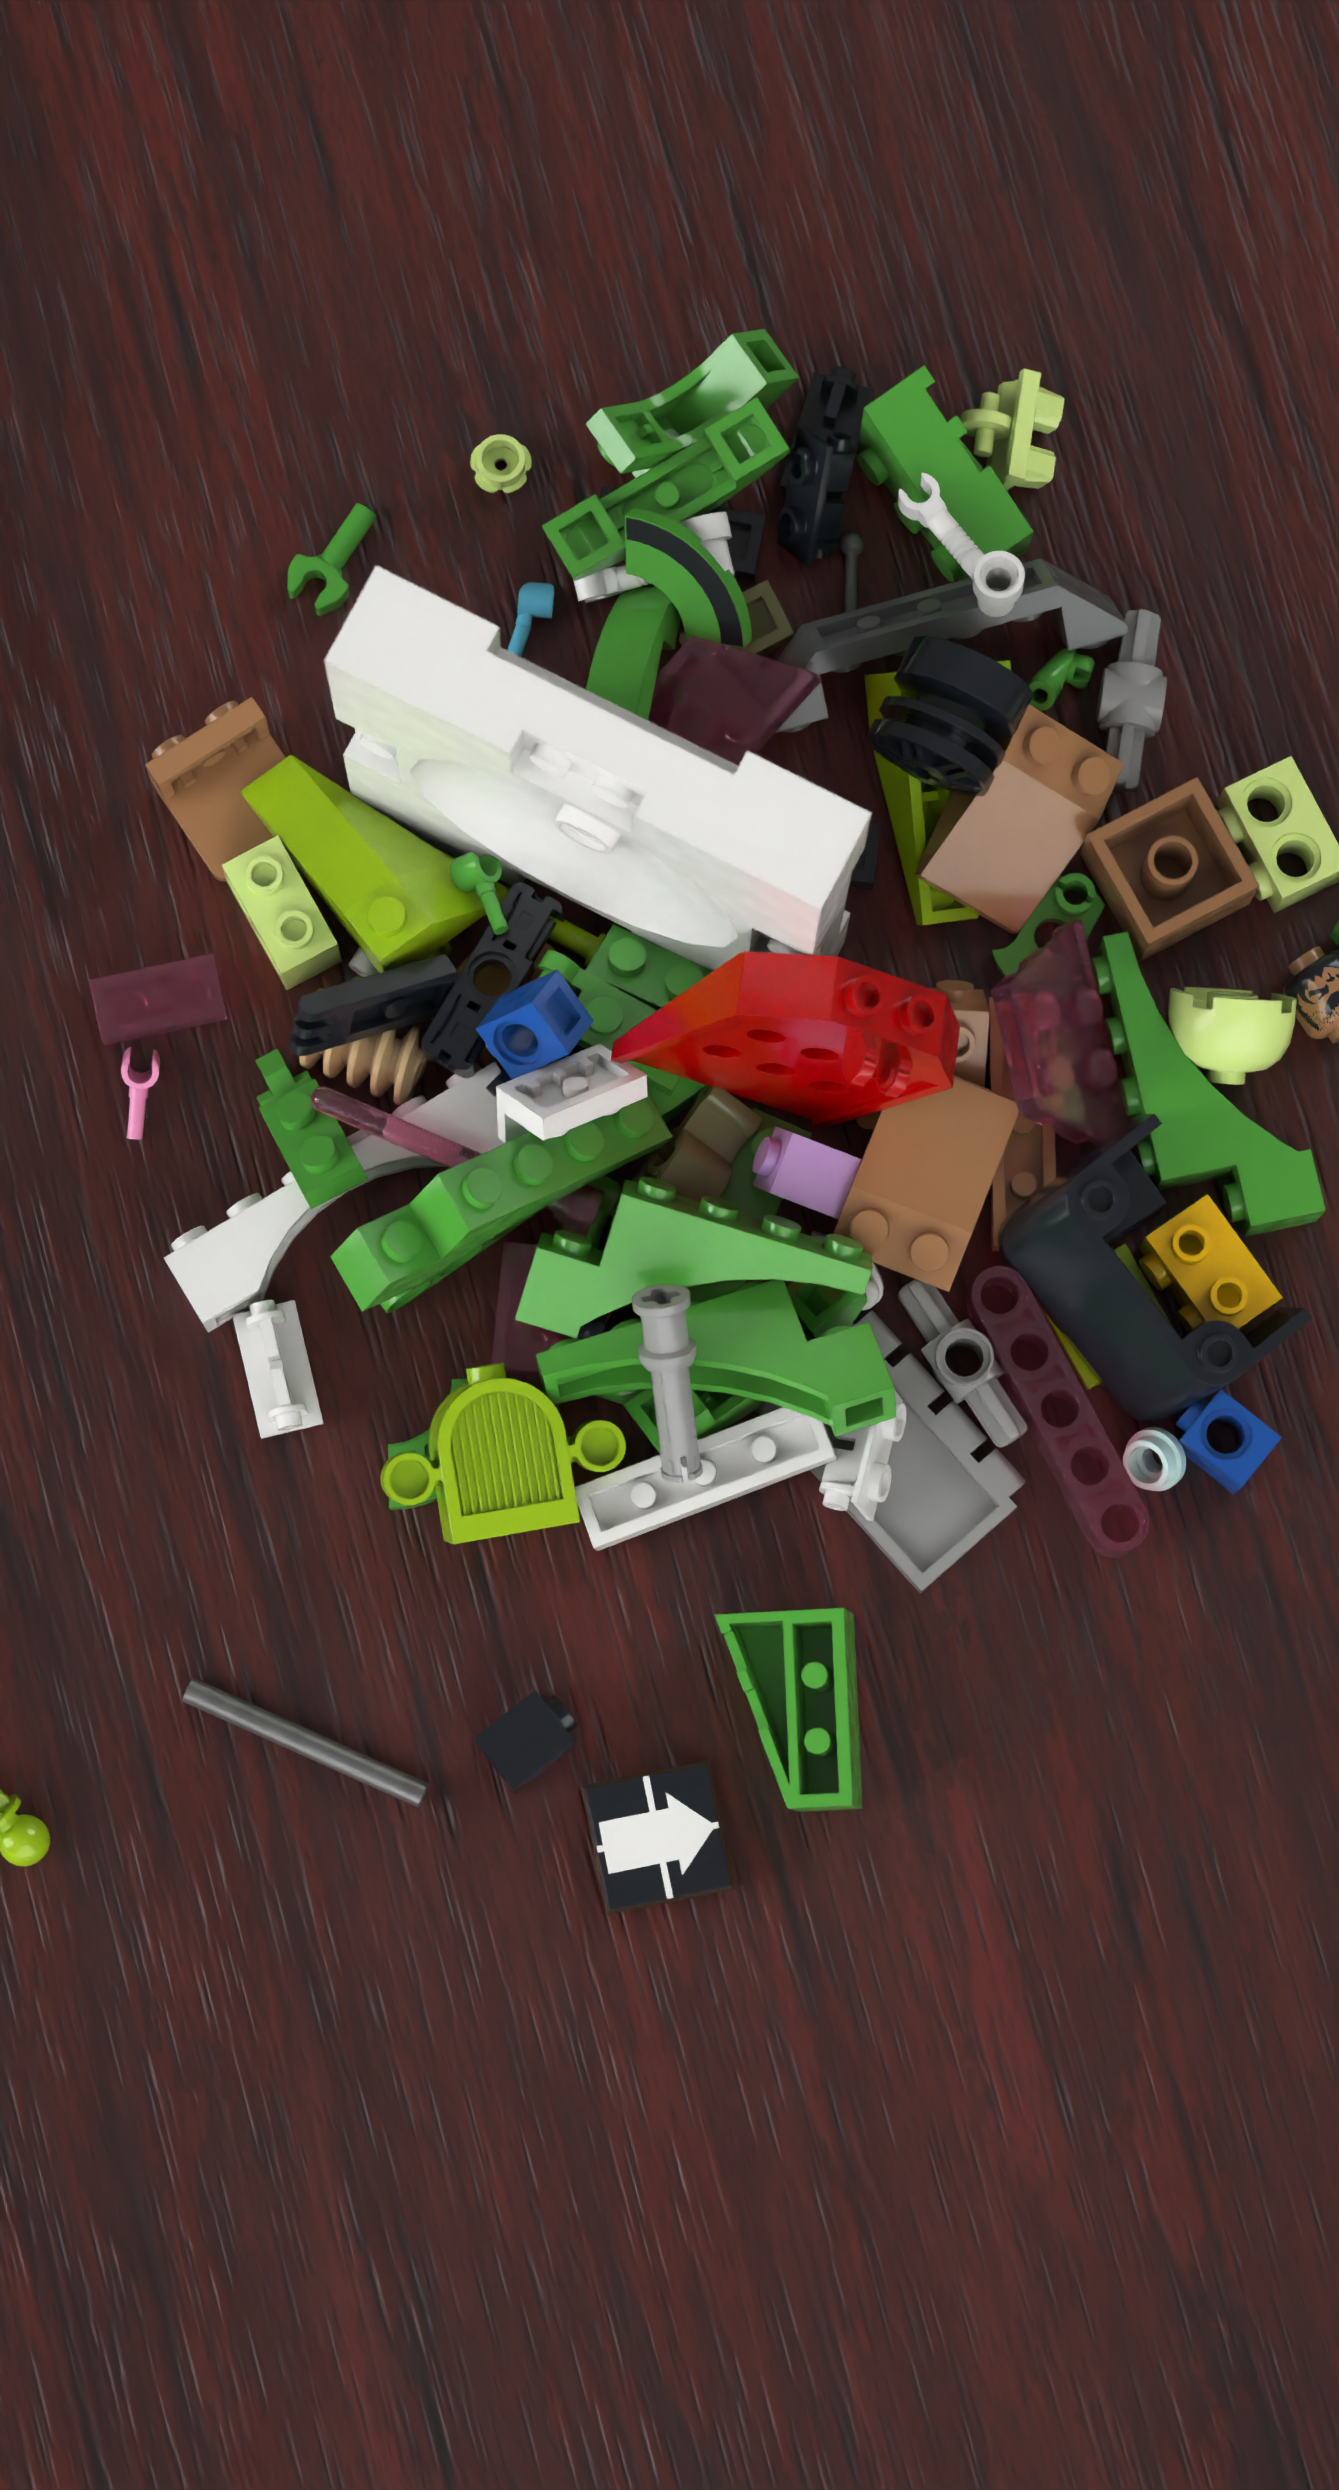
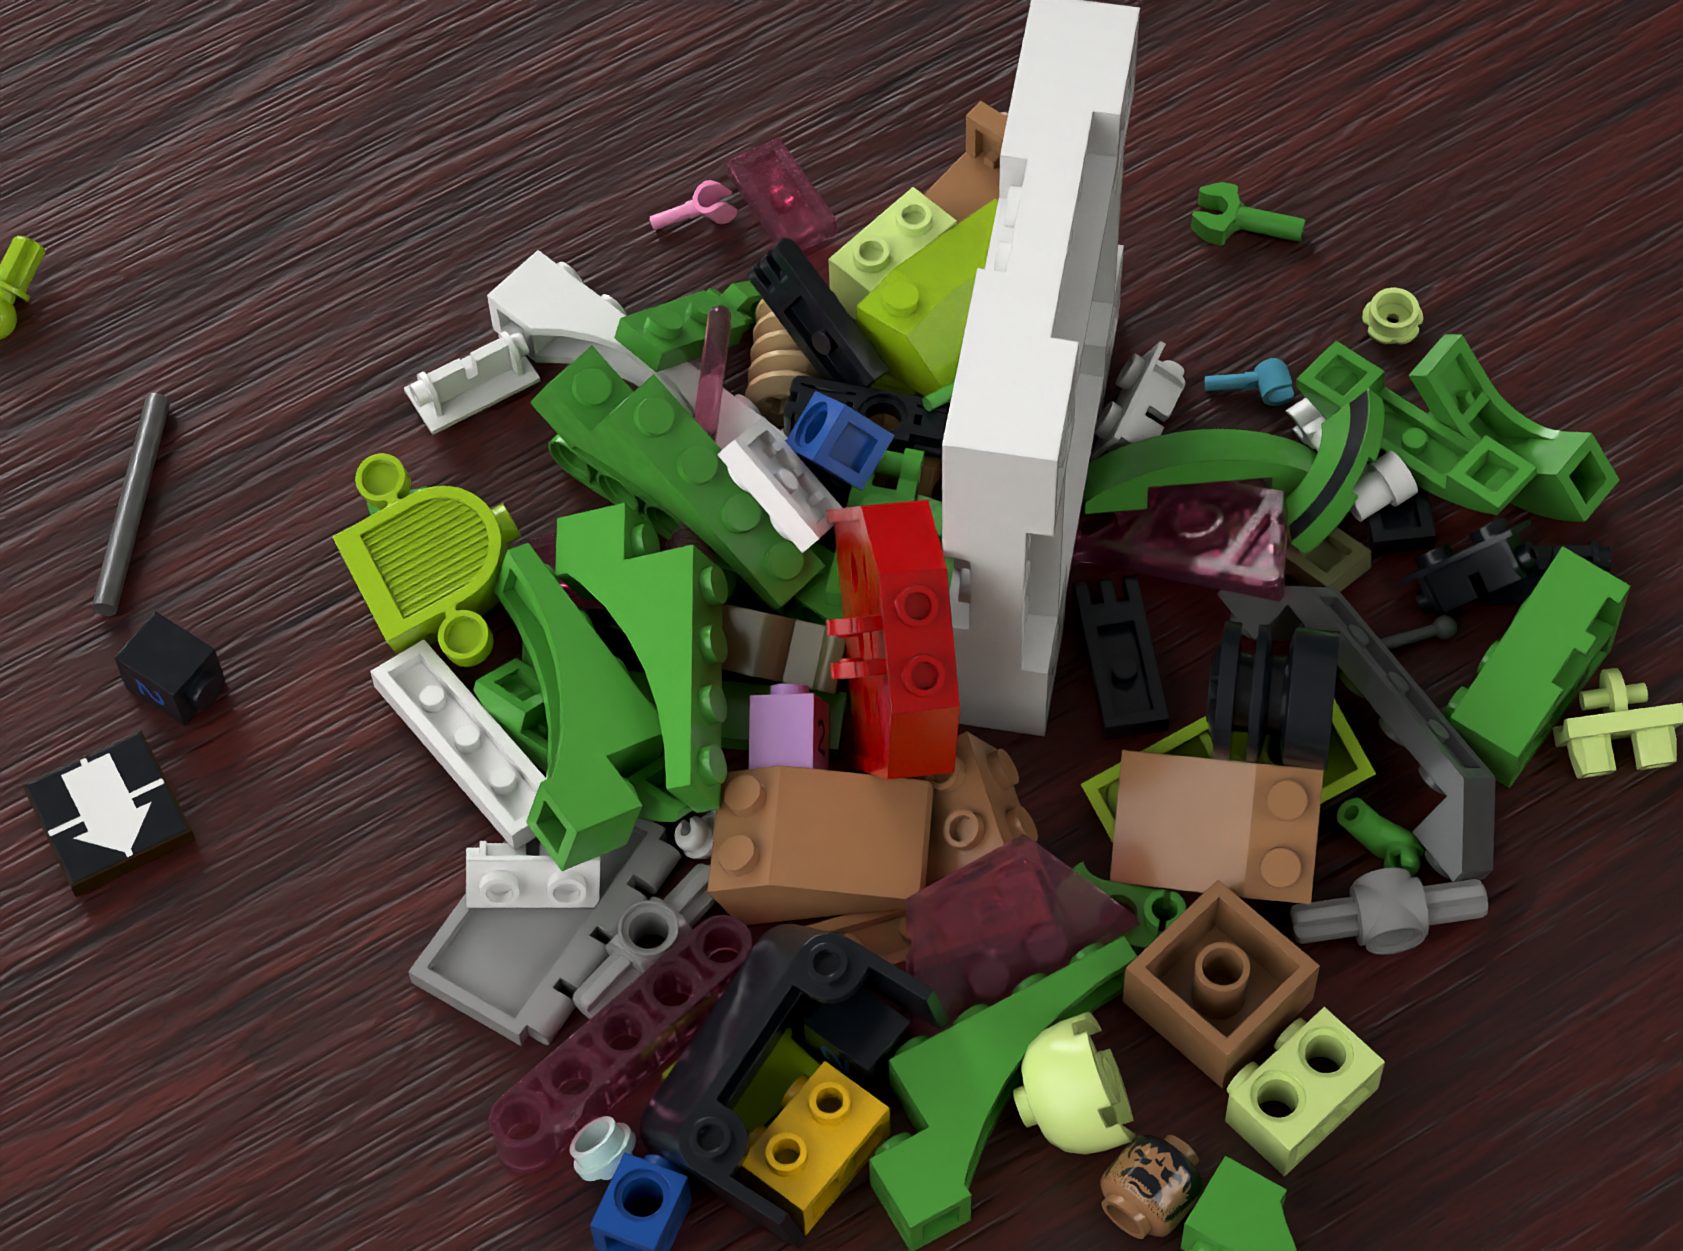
camera: 80 degrees right, 20 degrees down
(667, 1355) = (550, 635): light grey pin -> none
(804, 1700) = (260, 889): bright green wedge -> none
(987, 571) = (1439, 694): white brick -> none

